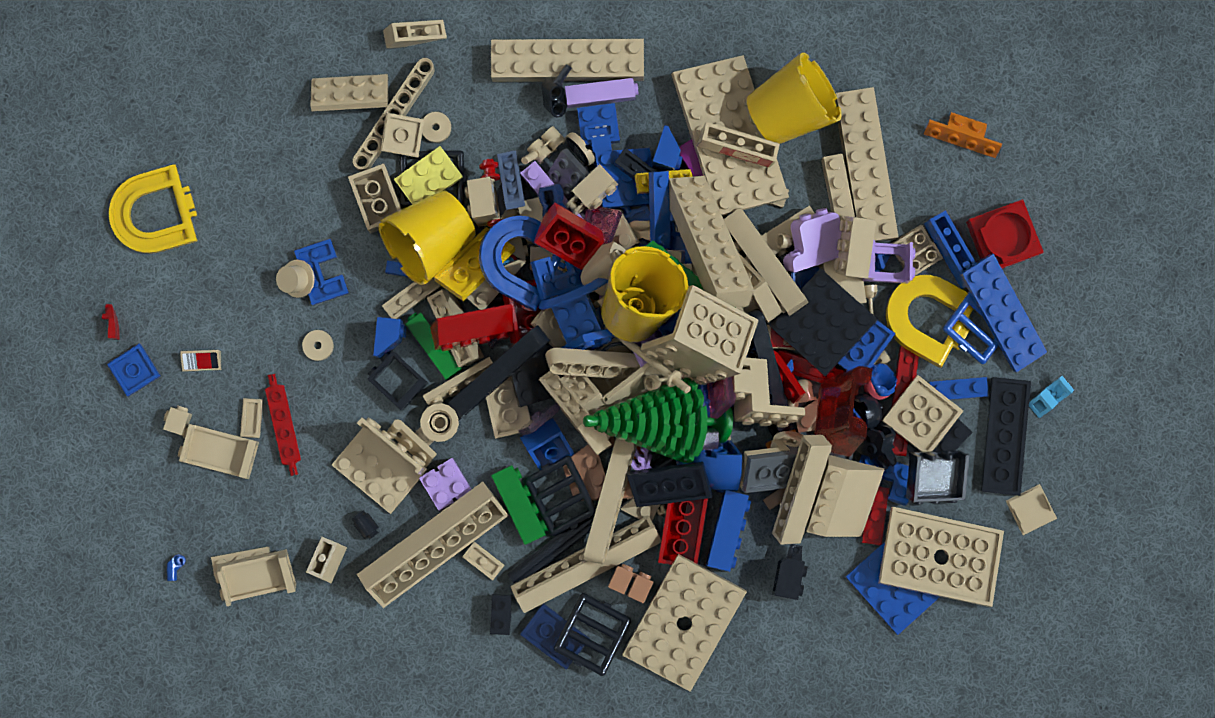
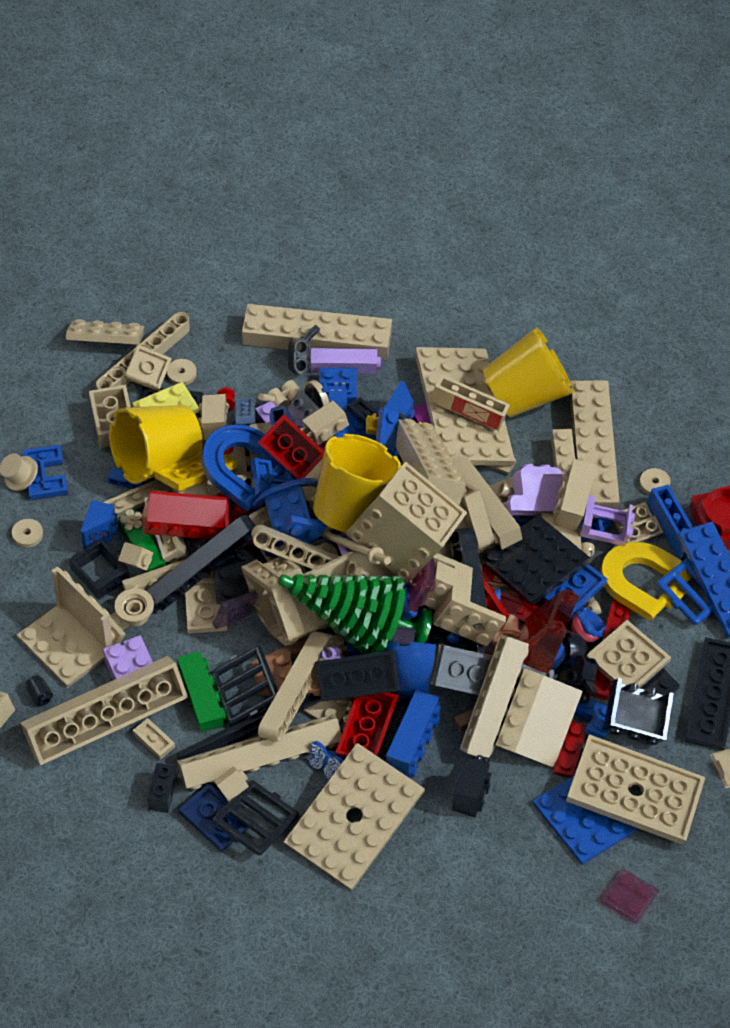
camera: 10 degrees right, 30 degrees down
(413, 33) = (174, 296): tan slope -> none
(419, 325) = (131, 520): none -> tan plant
(432, 370) = (135, 556): none -> tan brick
(547, 444) = (237, 640): blue slope -> none
(565, 604) = (232, 783): none -> tan brick
(640, 585) = (299, 765): nougat piece -> none
(650, 564) = (324, 760): none -> blue animal
(926, 205) = (653, 475): none -> tan piece
(944, 661) = (630, 896): none -> clear pink plate
(962, 388) = (678, 646): blue plate -> none
(964, 133) = (693, 434): orange bracket -> none

